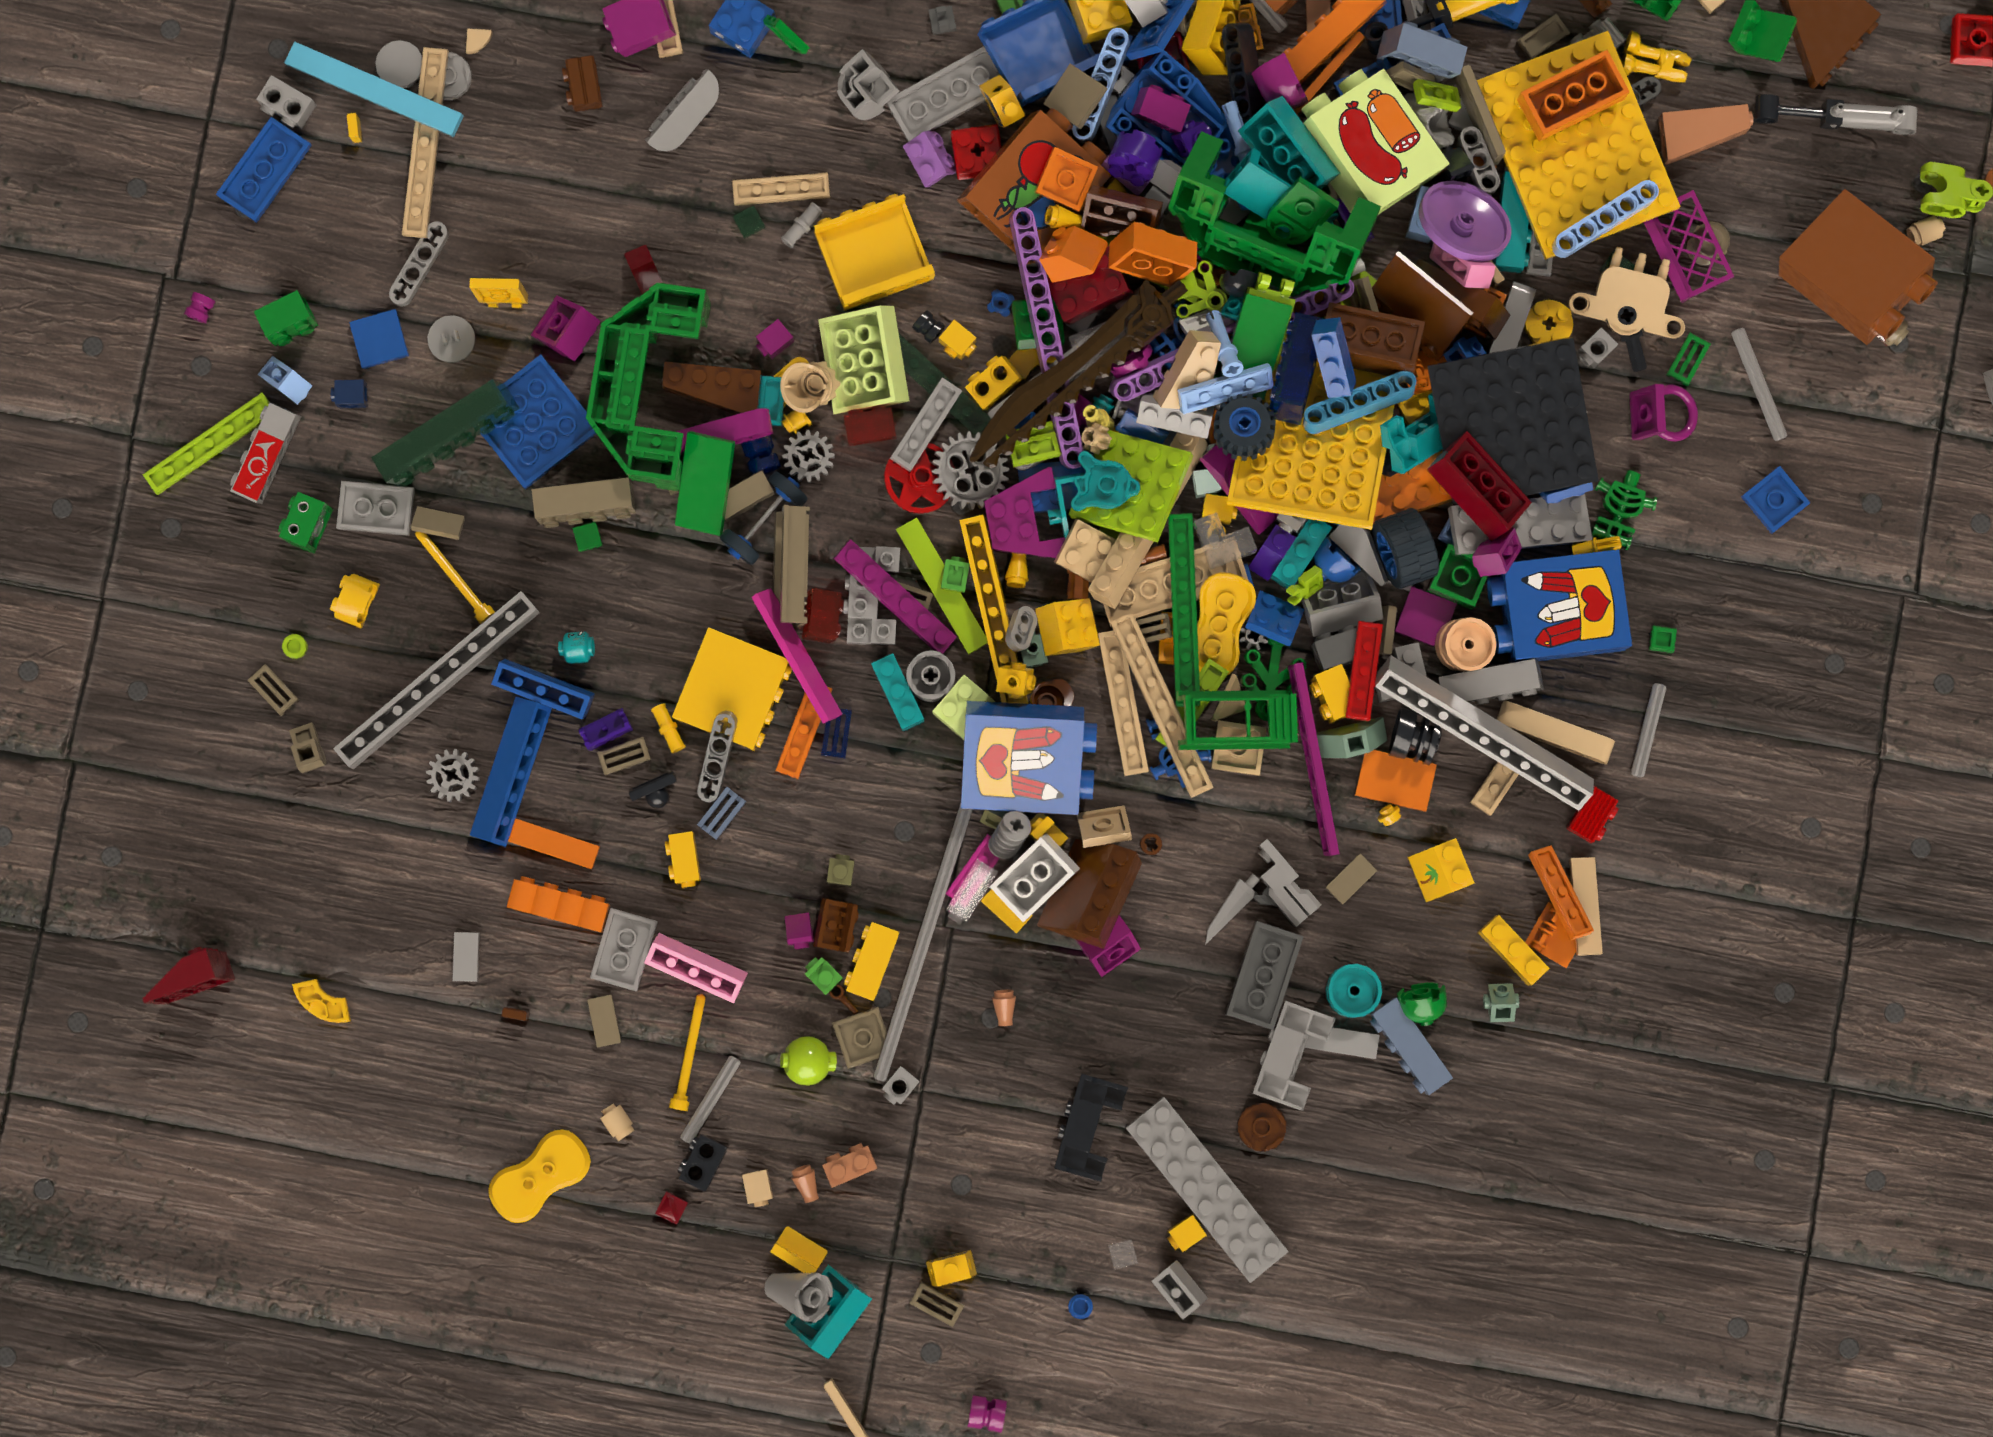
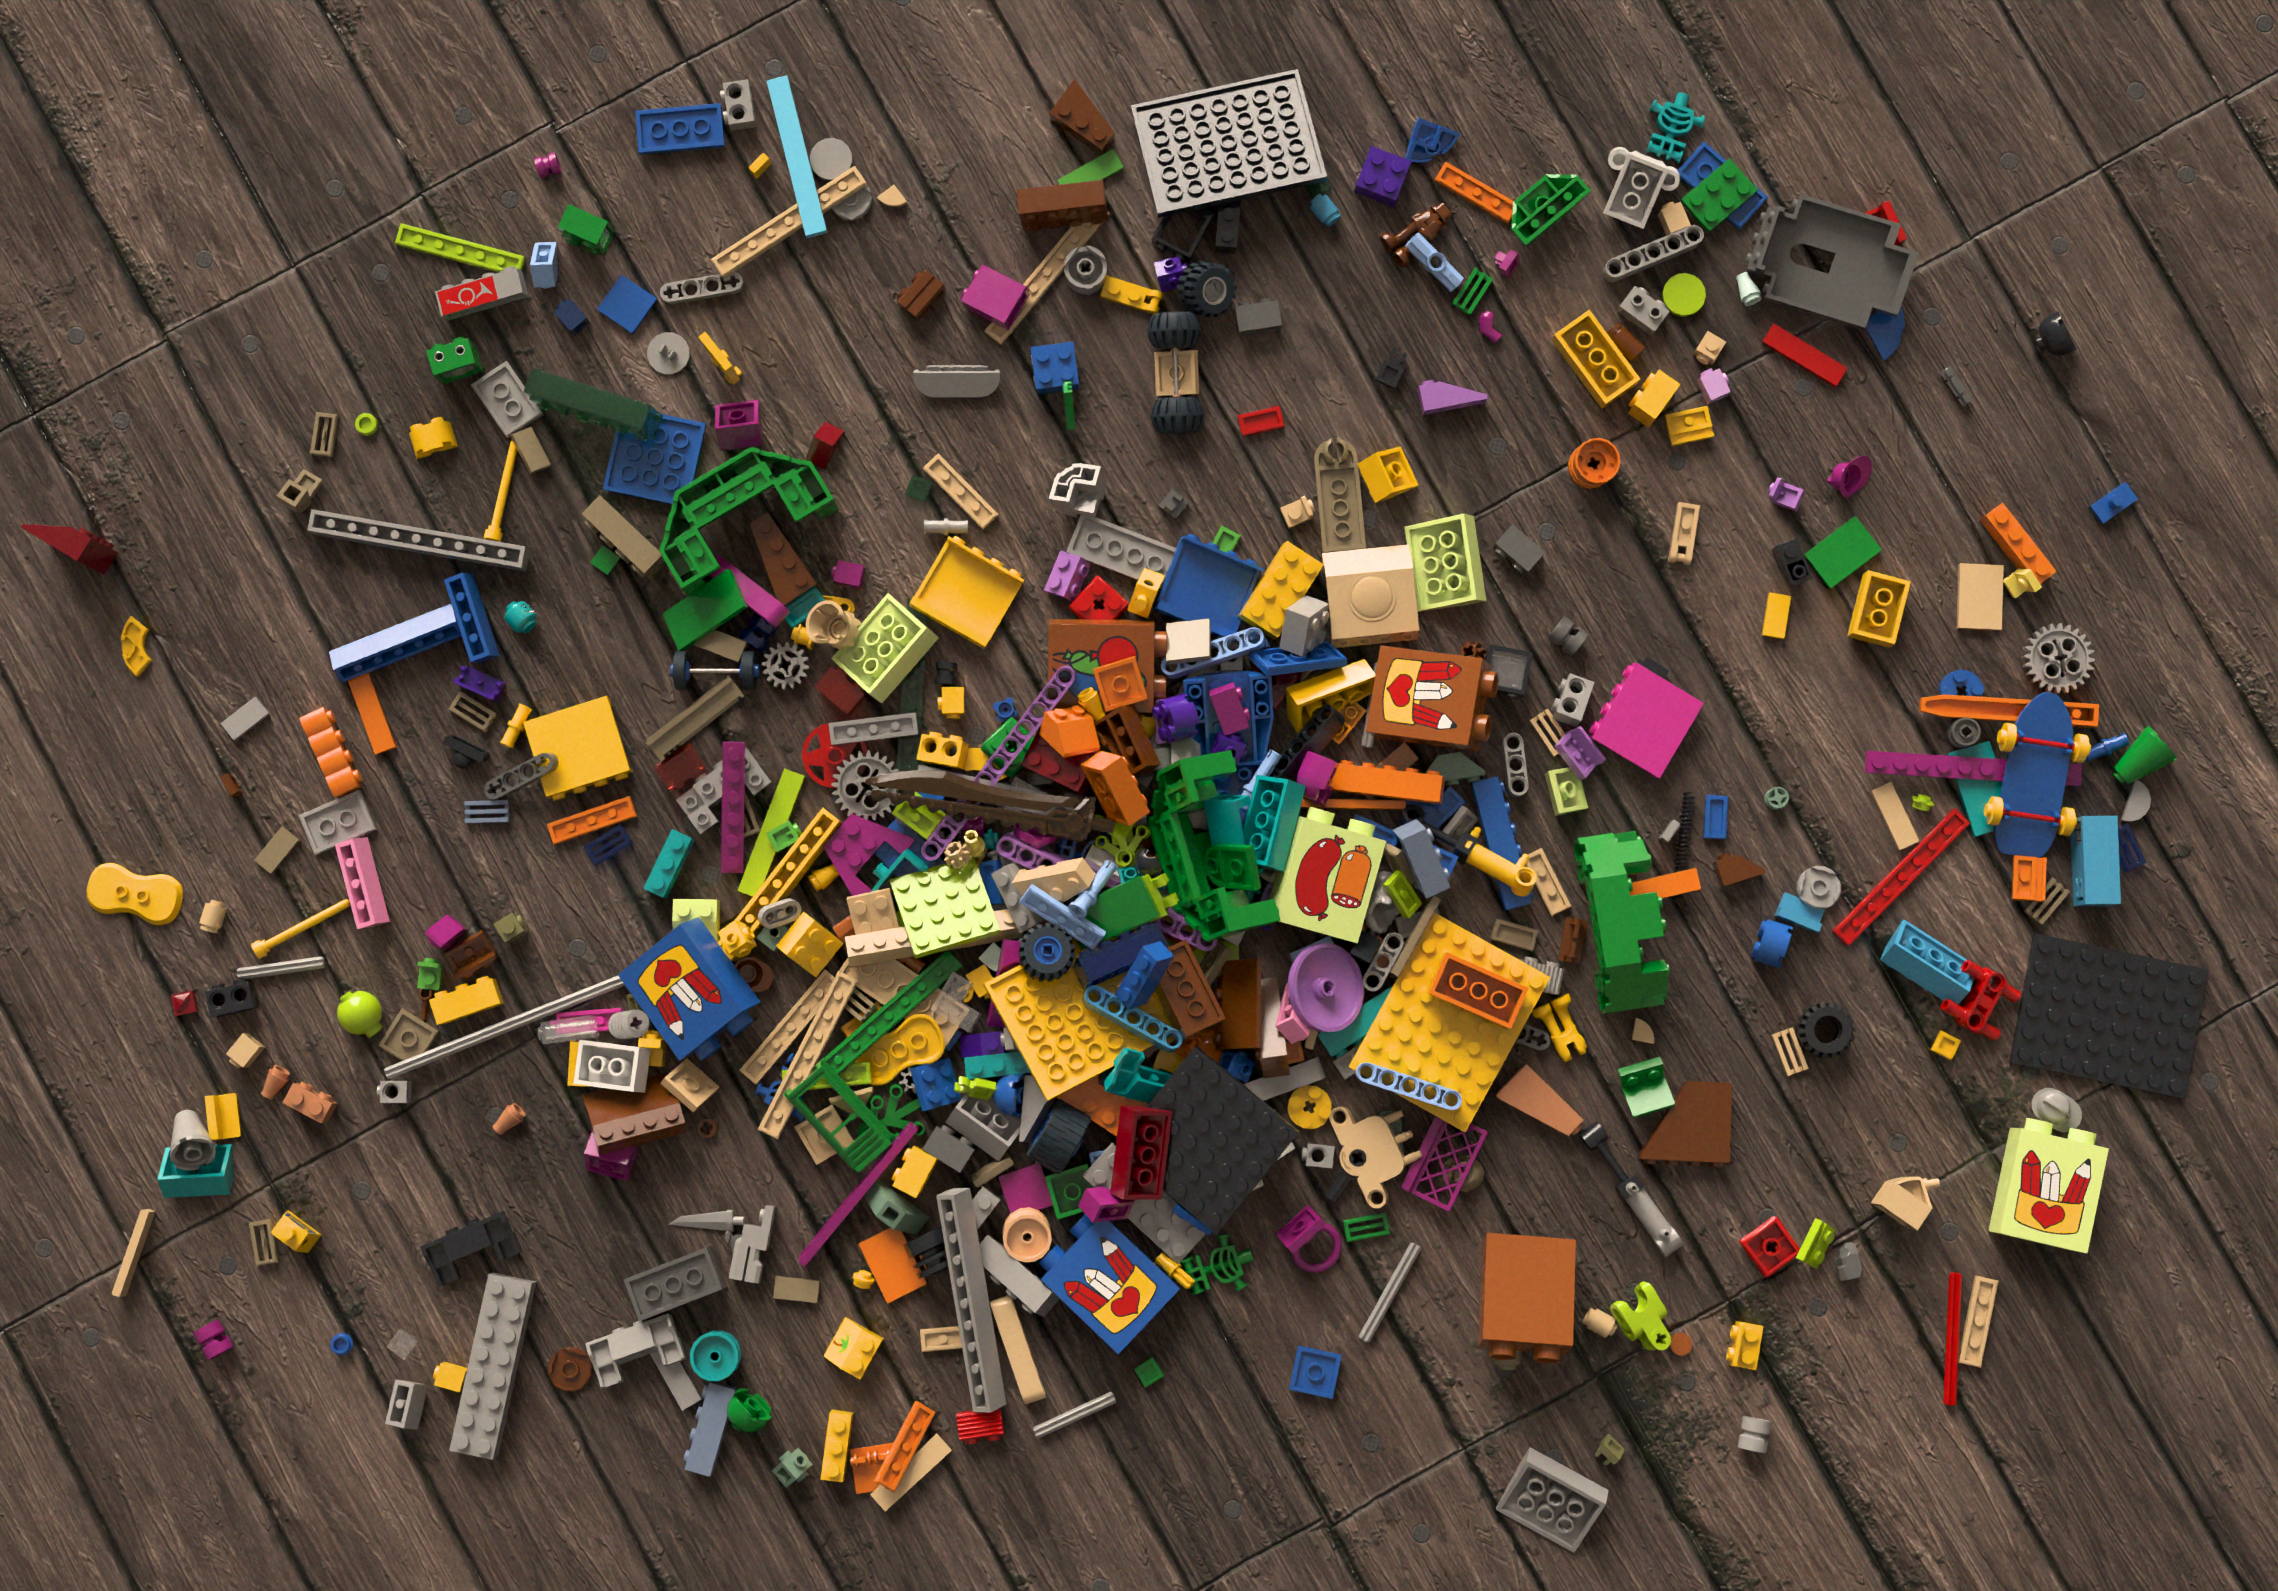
camera: 55 degrees right, 0 degrees up
(448, 785) = (365, 614): light grey gear -> none
(684, 859) = (432, 812): yellow brick -> none
(797, 657) = (635, 775): dark pink tile -> none
(920, 667) = (686, 877): light grey brick -> none
(1103, 484) = (926, 887): teal tile -> none
(1363, 671) = (943, 1178): red tile -> none

